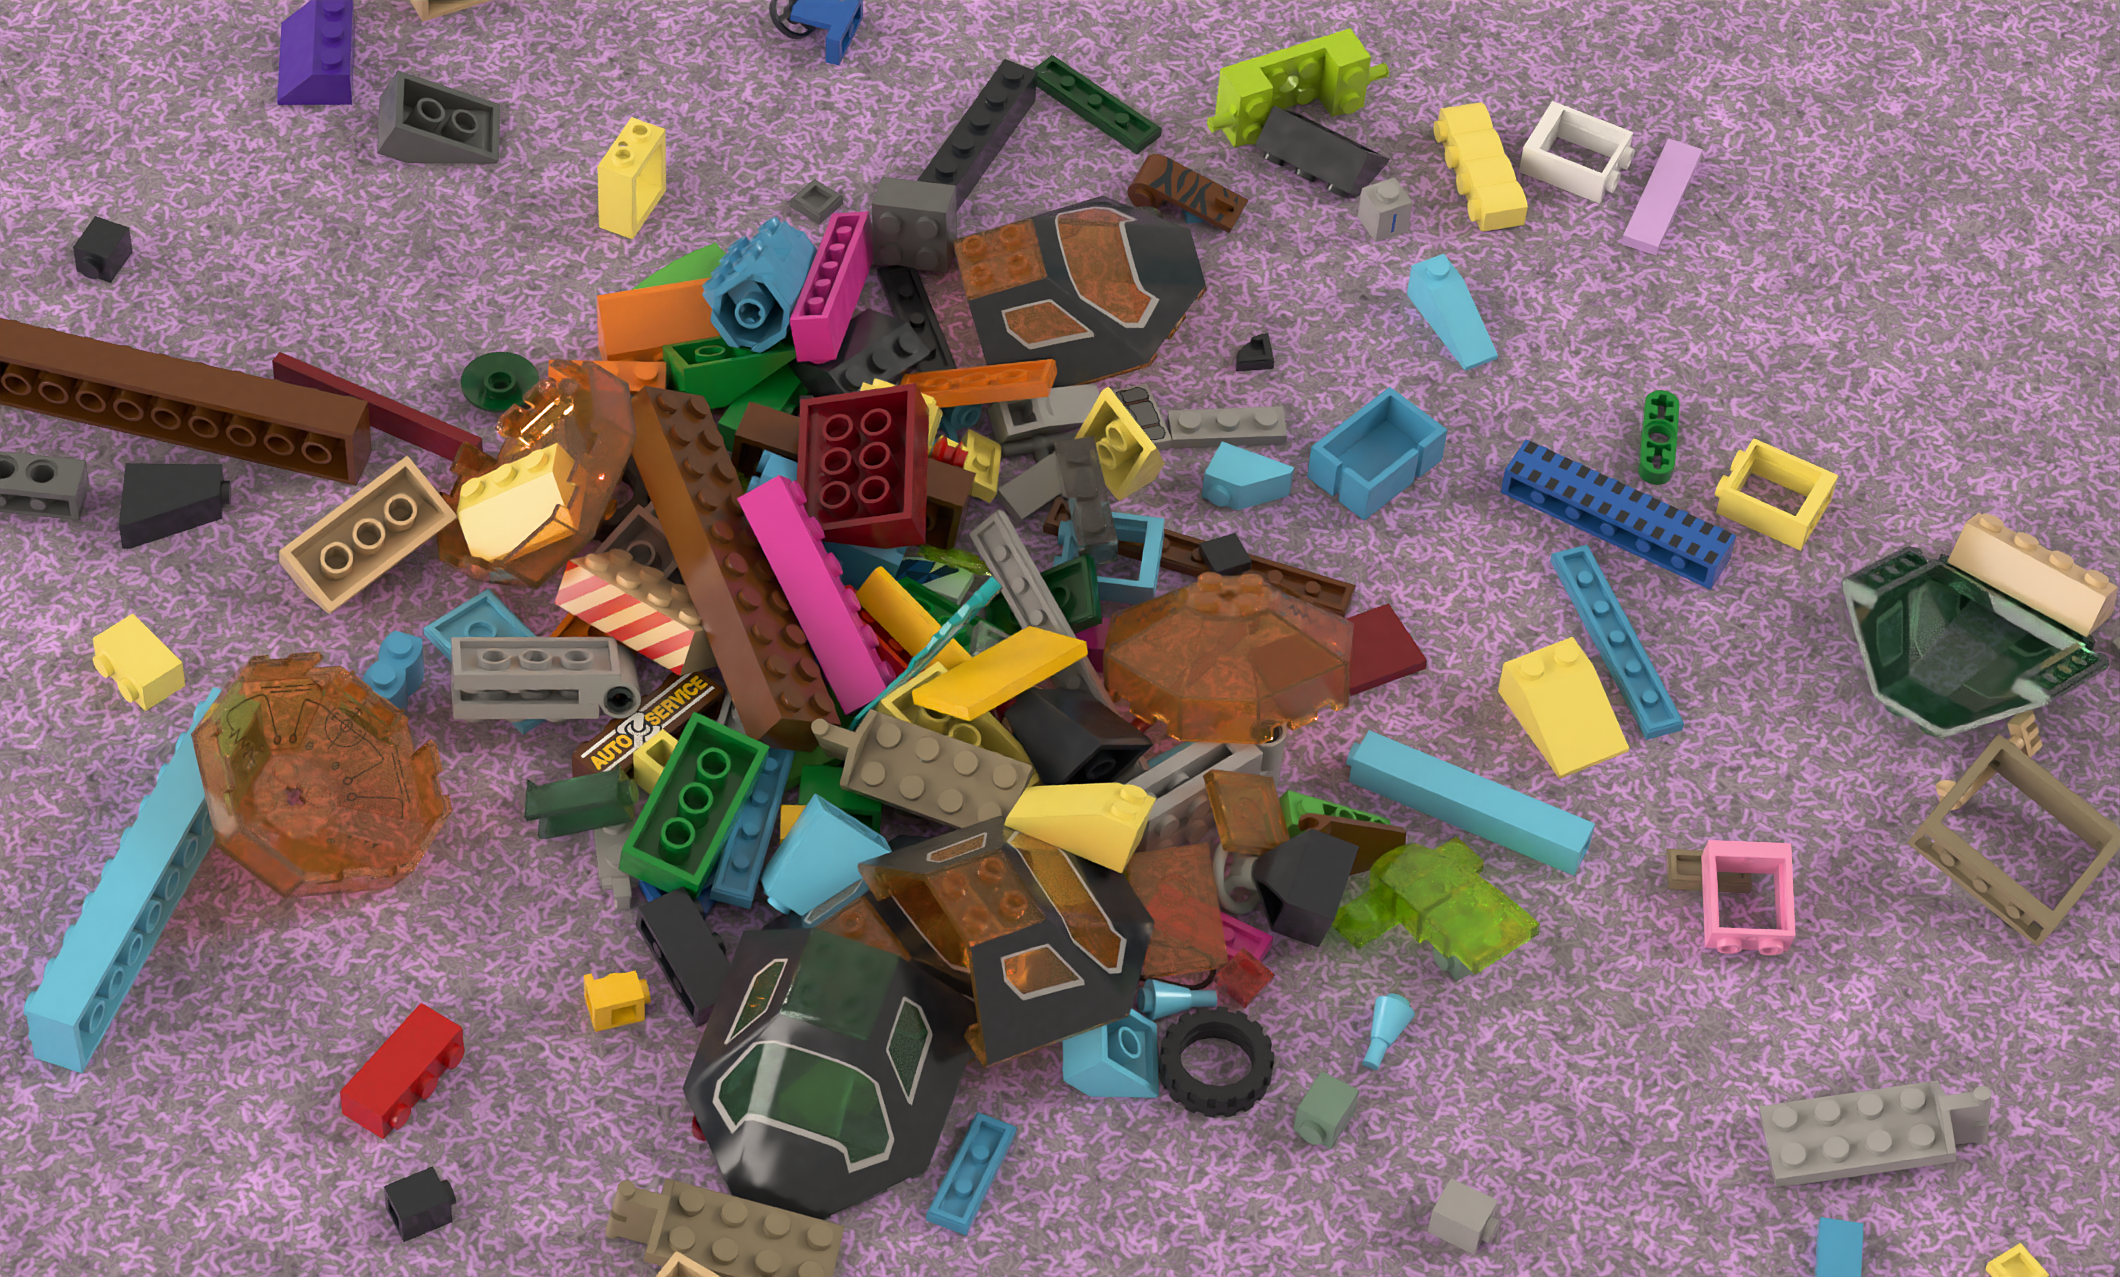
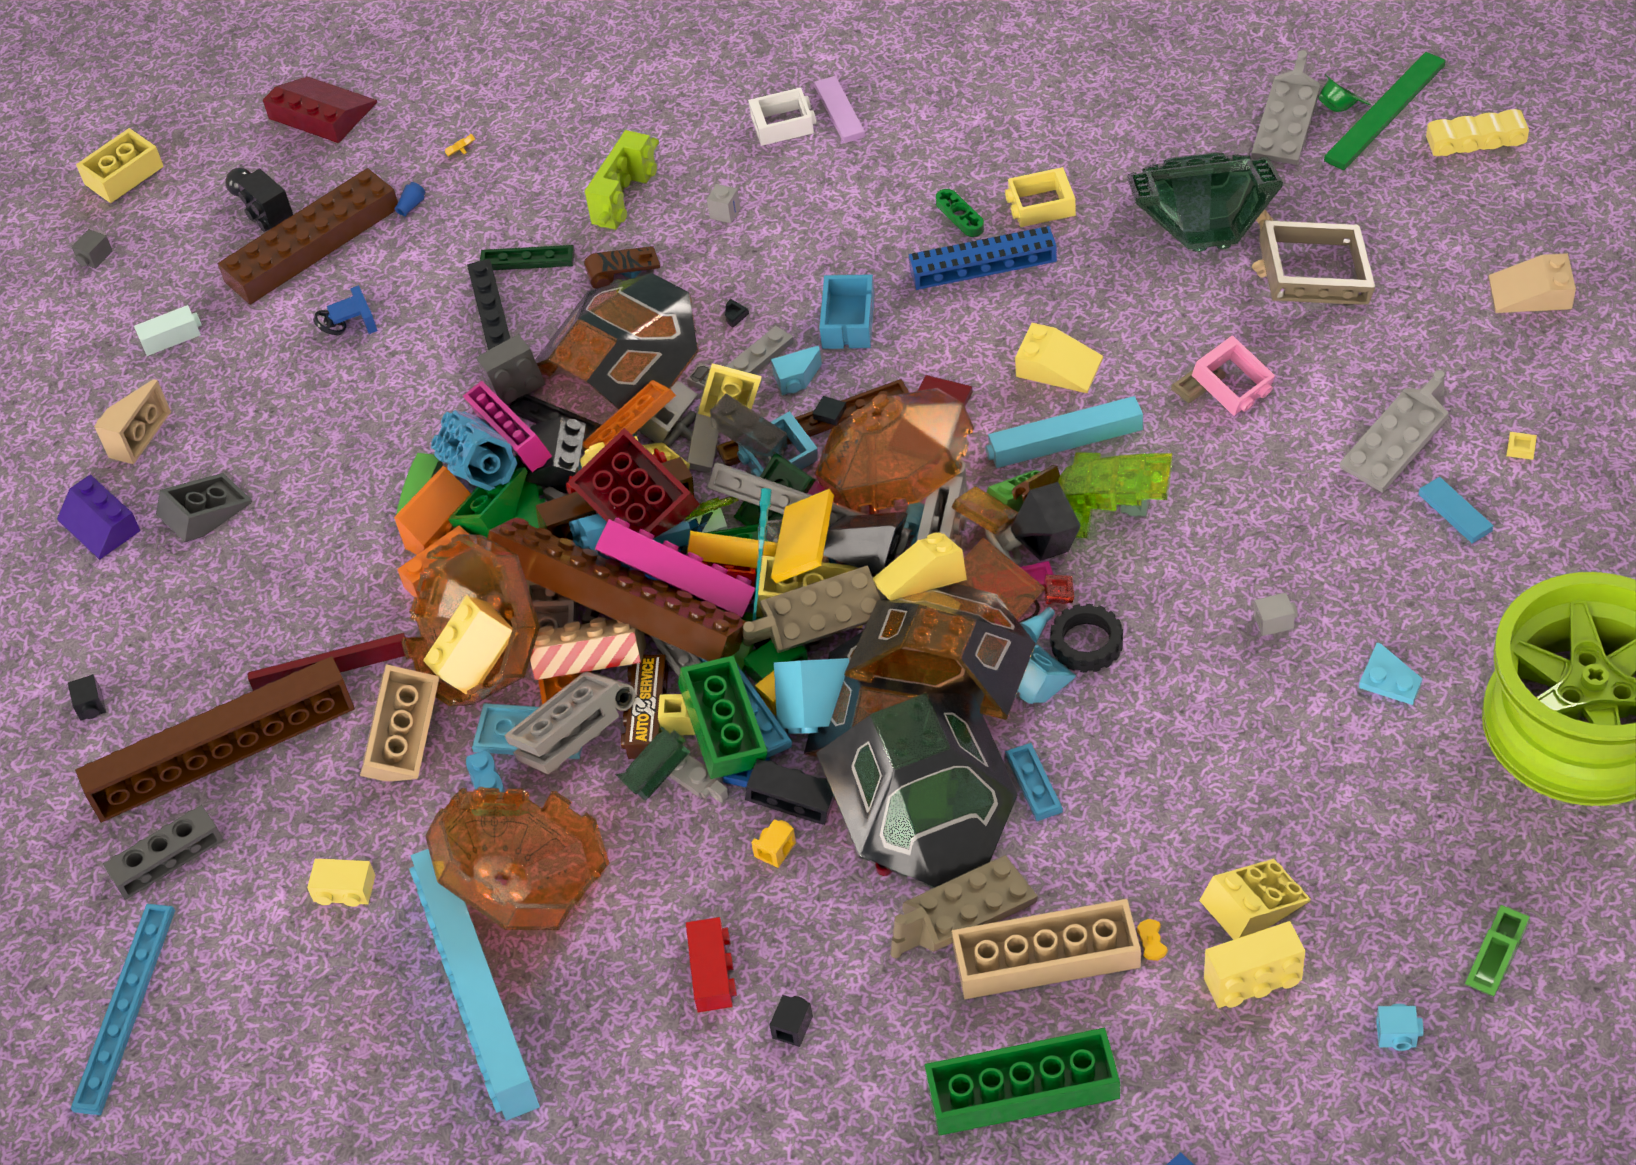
camera: 30 degrees left, 0 degrees up
(169, 500) = (265, 790): black slope -> none
(498, 381) = (378, 593): dark green dish -> none
(632, 178) = (341, 453): light yellow window -> none
(816, 201) = (440, 400): dark grey tile -> none
(1319, 152) = (663, 201): black slope -> none
(1325, 1110) = (1161, 618): sand green brick -> none
(1390, 1018) = (1140, 554): medium azure cone -> none
(1450, 310) = (802, 225): medium azure slope -> none
(1481, 167) = (747, 154): light yellow brick -> none
(1617, 642) = (1044, 314): dark azure tile -> none
(2034, 574) = (1193, 145): tan slope -> none

